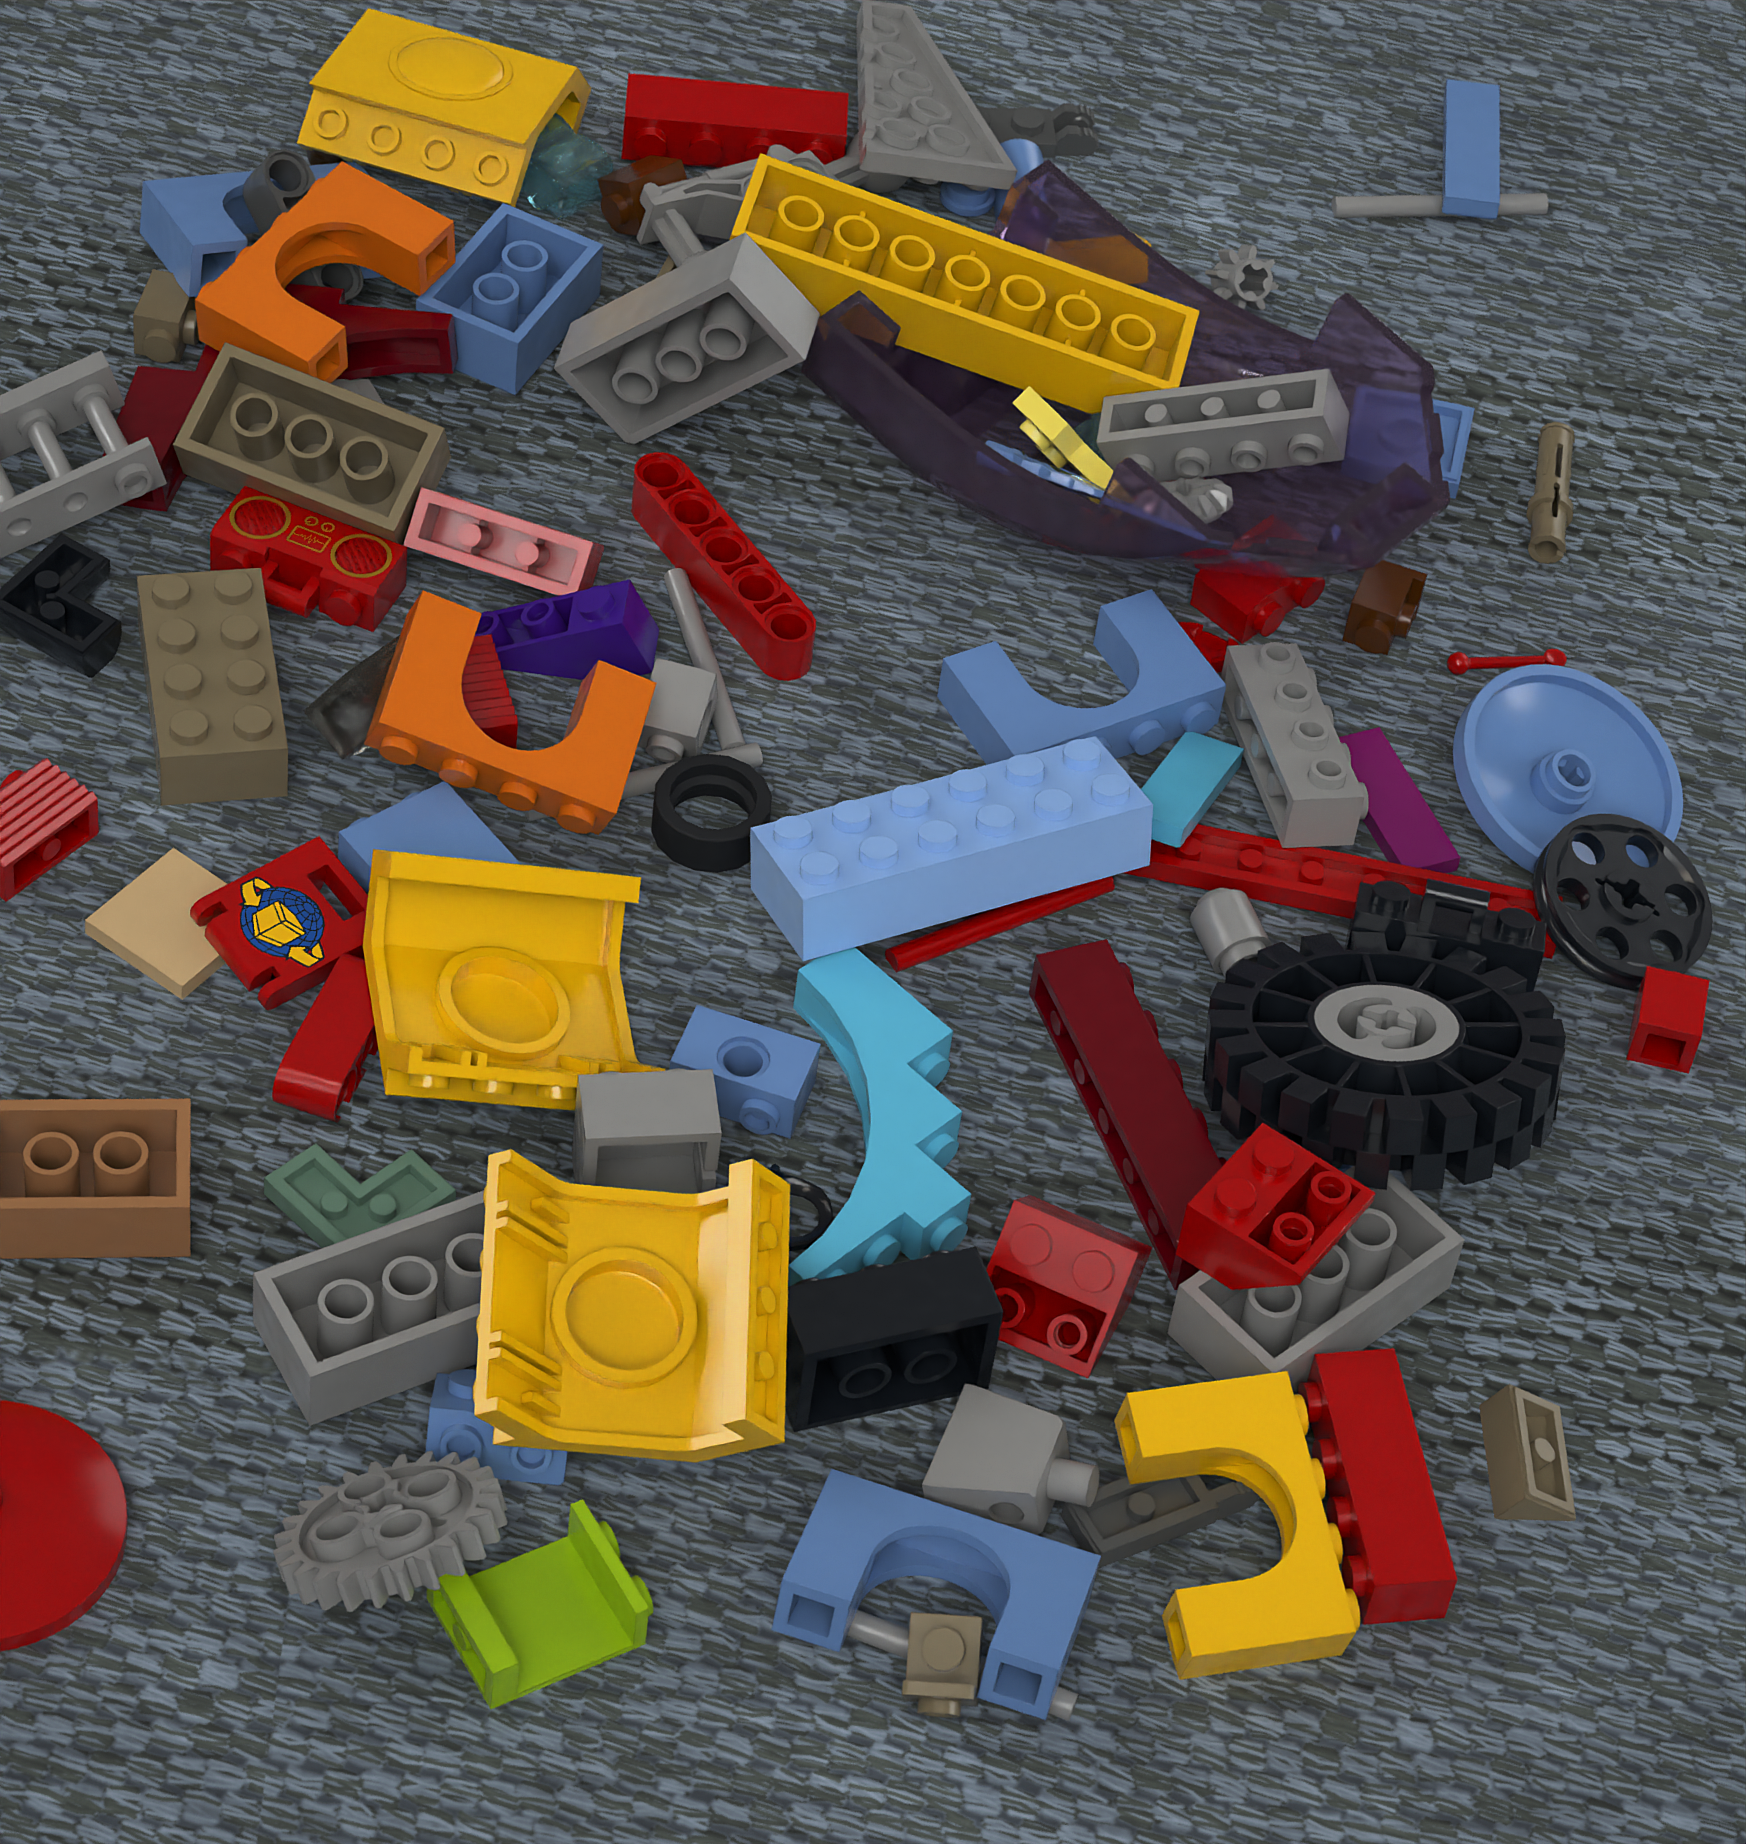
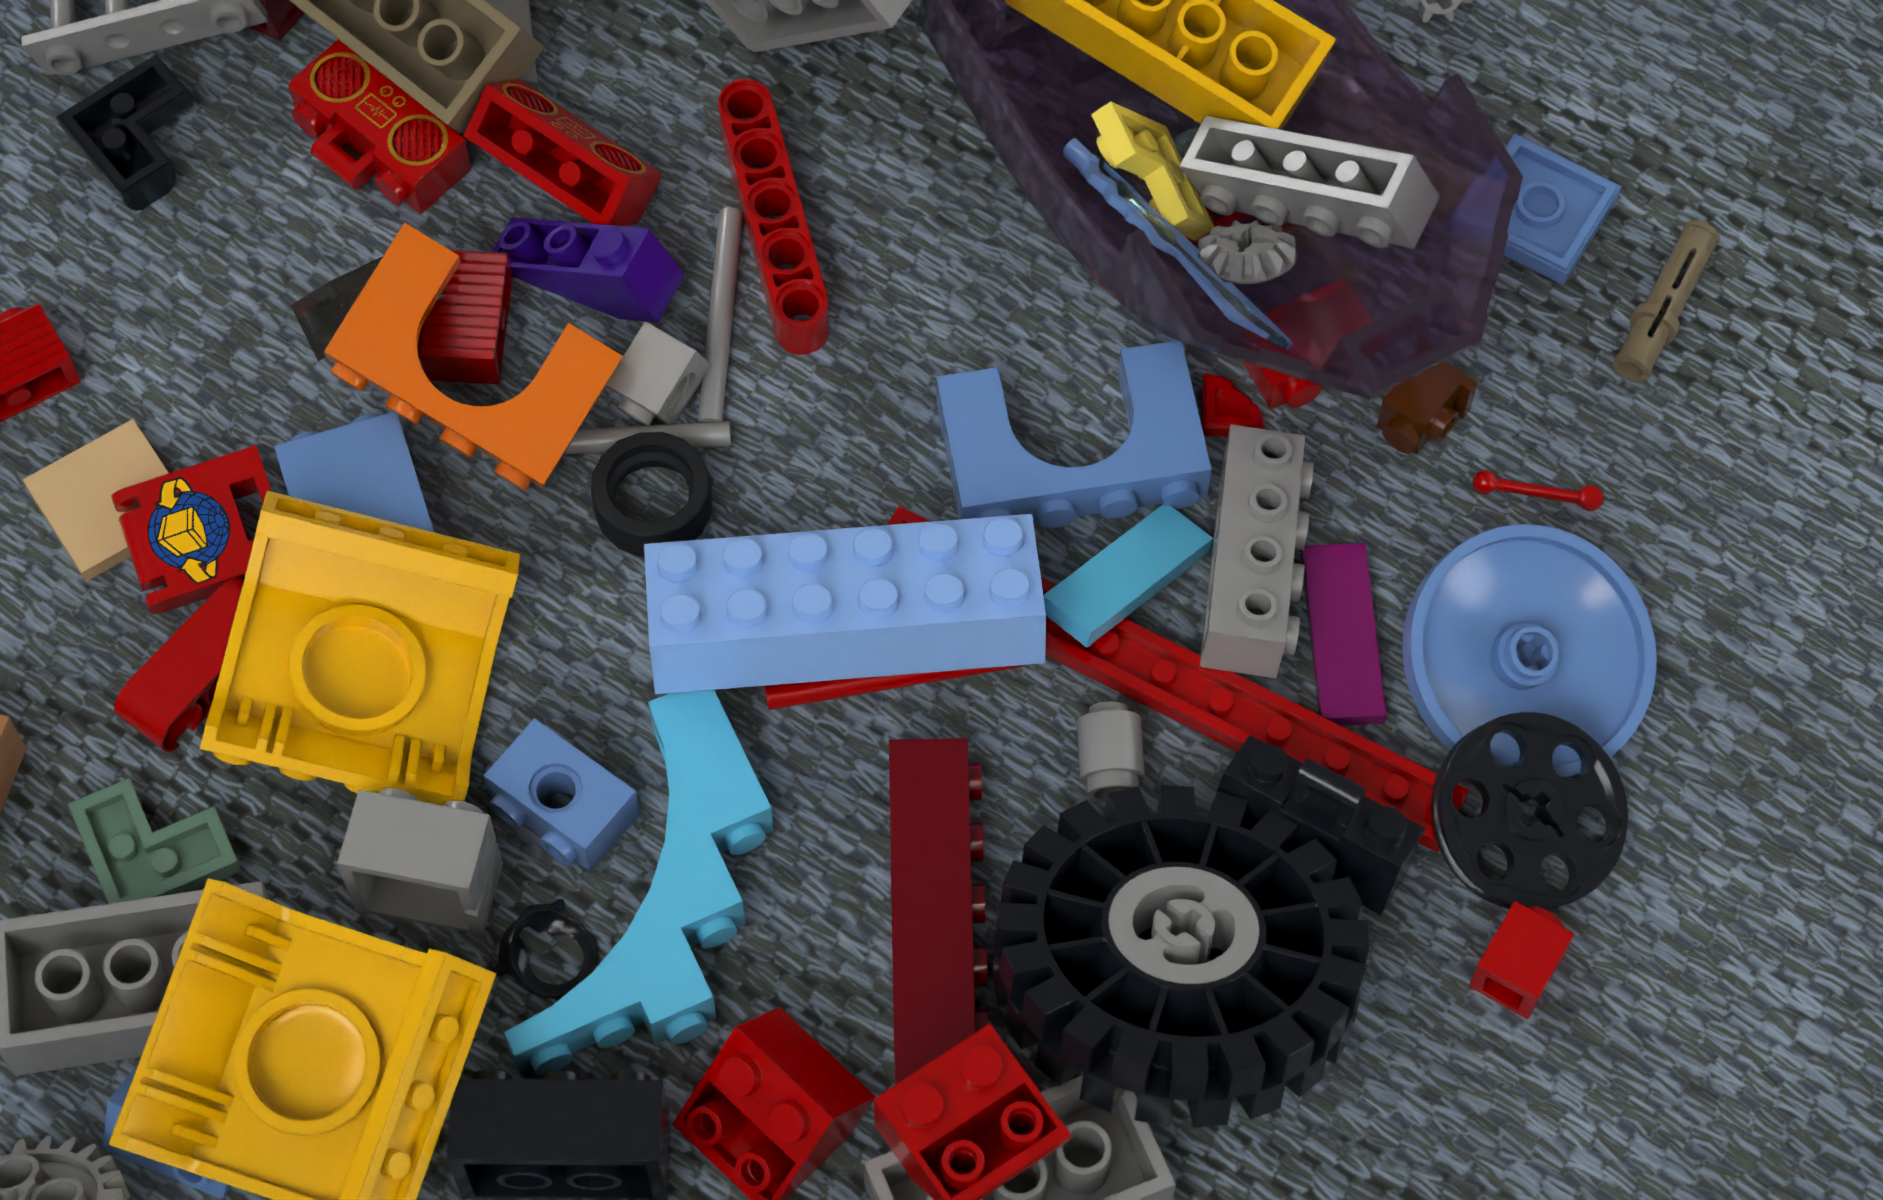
camera: 25 degrees right, 15 degrees up
(212, 686) = (230, 251): dark tan brick -> none

